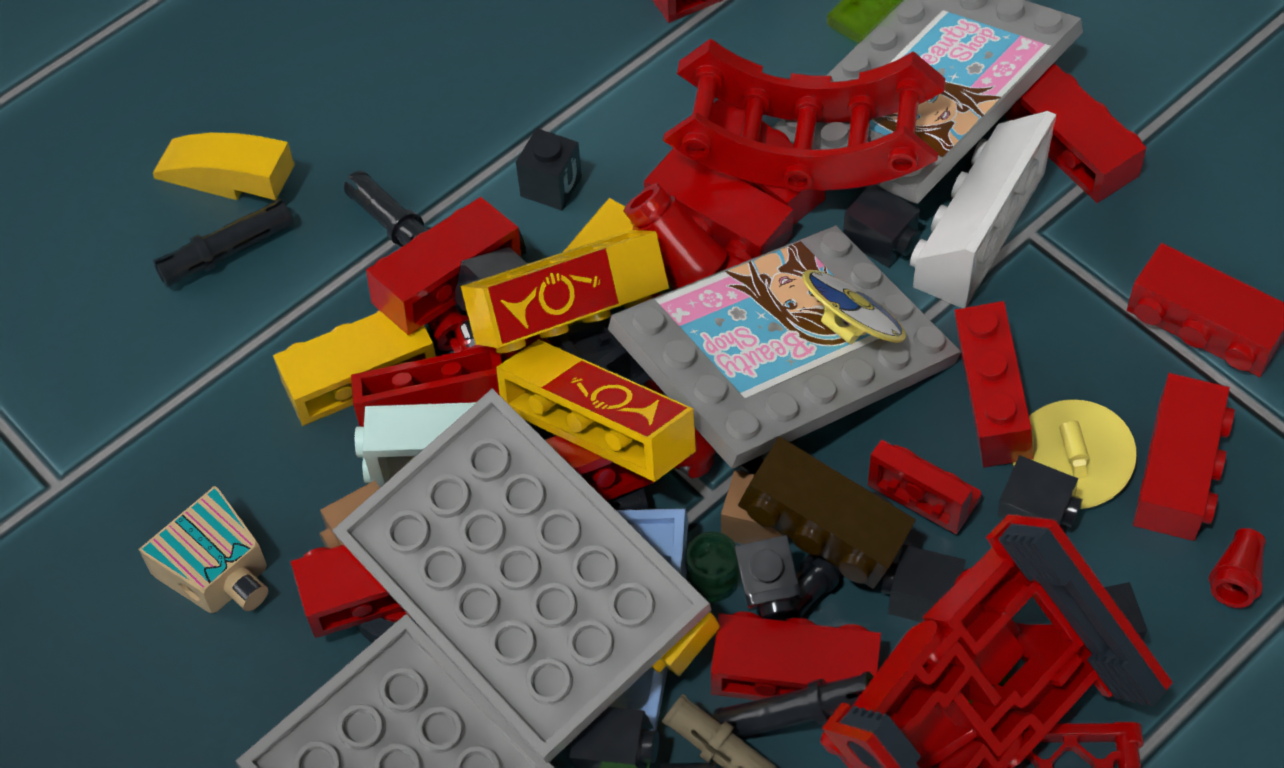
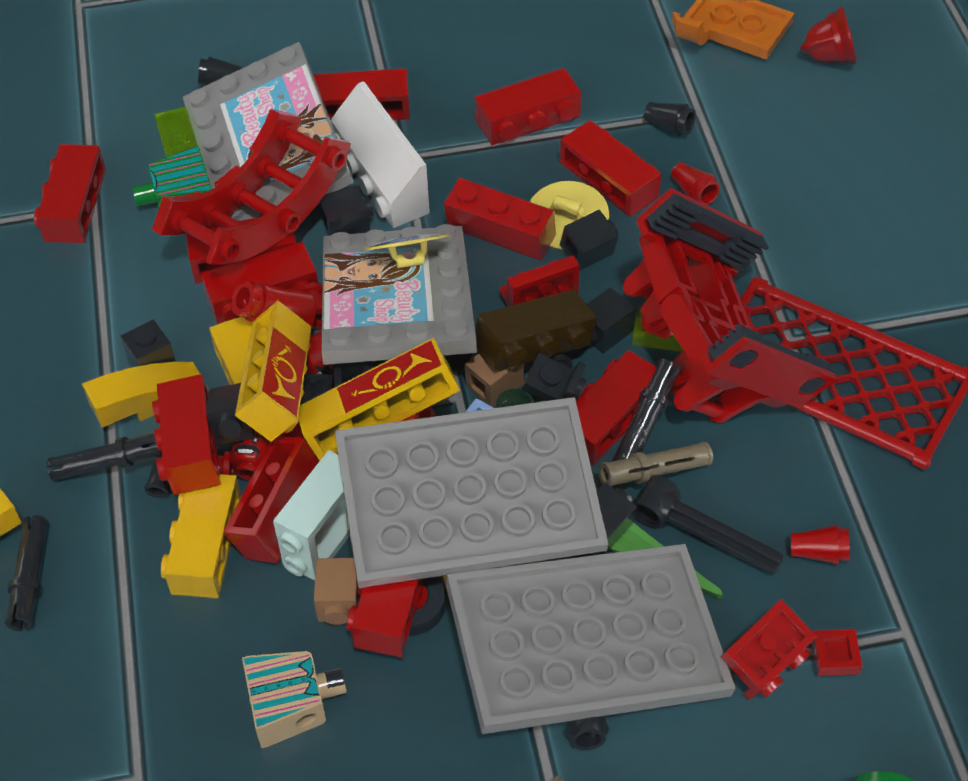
camera: 60 degrees left, 5 degrees down
(468, 172) = (132, 390): none -> yellow slope
(798, 41) = (174, 176): none -> torso

